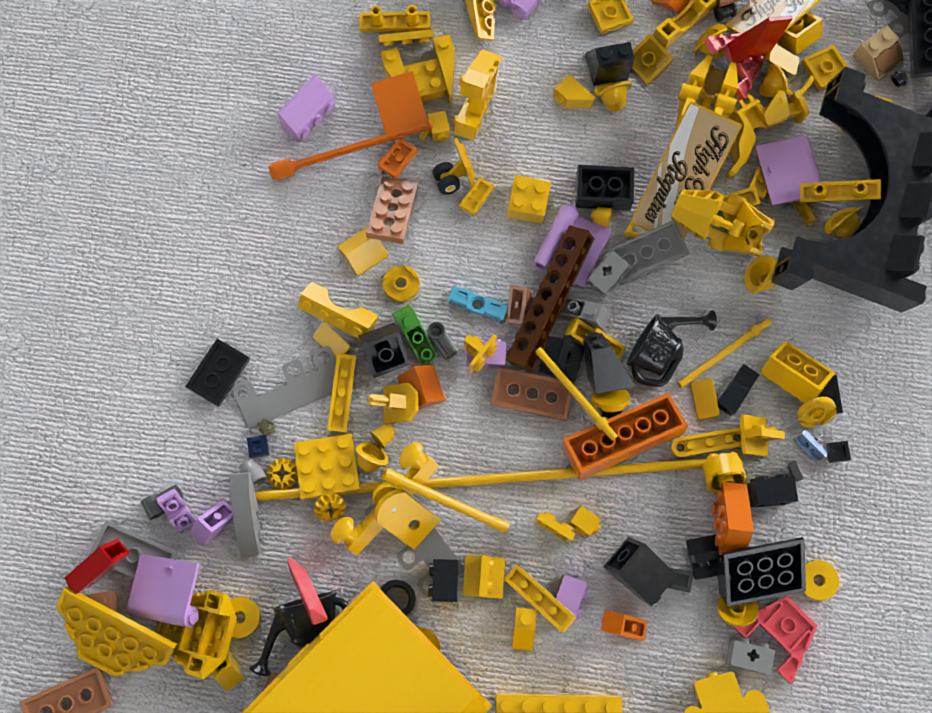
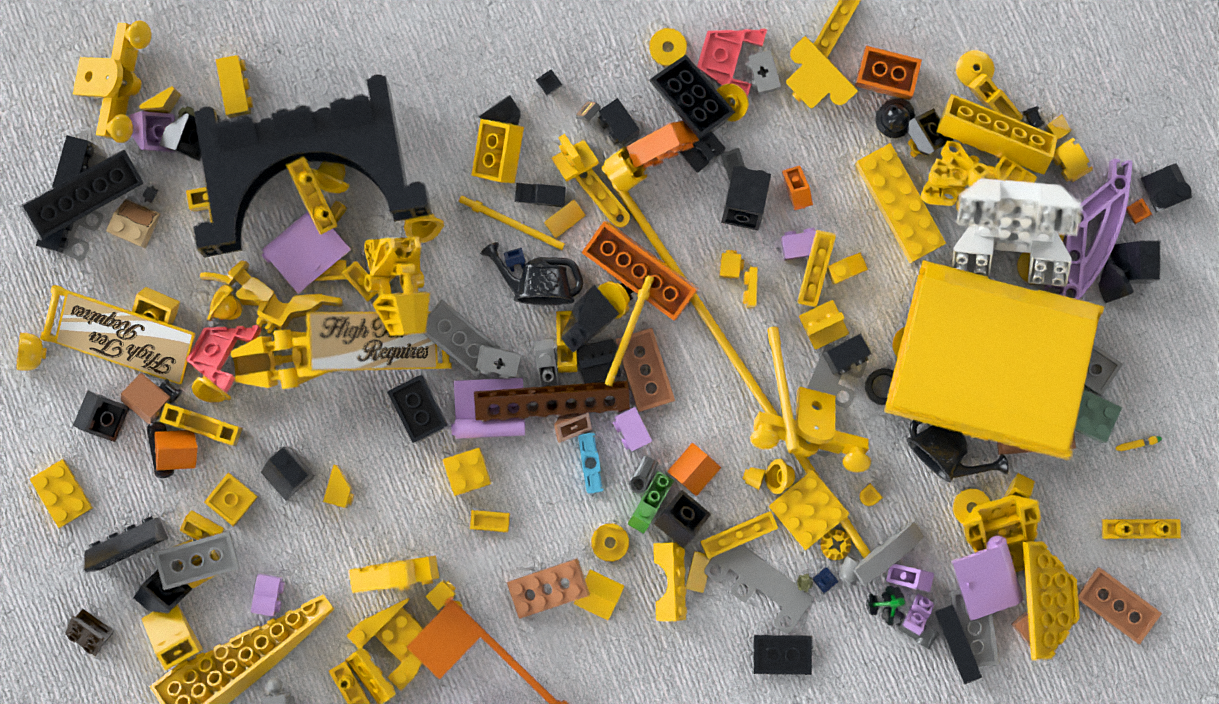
camera: 115 degrees left, 10 degrees up
(96, 565) = (1001, 646): red brick -> none
(127, 530) = (958, 644): none -> black tile
(195, 490) = (892, 597): none -> black plant
(306, 529) = (869, 495): none -> yellow tile
(307, 592) = (922, 460): coral slope -> none
(322, 504) = (843, 493): yellow gear -> none
(397, 158) = (496, 613): orange bracket -> none
(398, 403) = (720, 480): yellow piece -> none
(448, 175) = (483, 558): plate -> none
(475, 348) = (638, 439): yellow bracket -> none
(602, 216) = (445, 397): yellow hat -> none
(613, 94) = (317, 451): yellow helmet -> none
(650, 59) = (261, 436): yellow slope -> none
(693, 336) = (514, 257): none -> dark blue tile
(758, 40) = (201, 343): red slope -> none
(787, 61) = (194, 312): yellow slope -> none
(811, 445) = (553, 107): light blue piece -> none
(816, 411) = (524, 118): yellow tile -> none
(824, 65) = (176, 267): yellow plate -> none

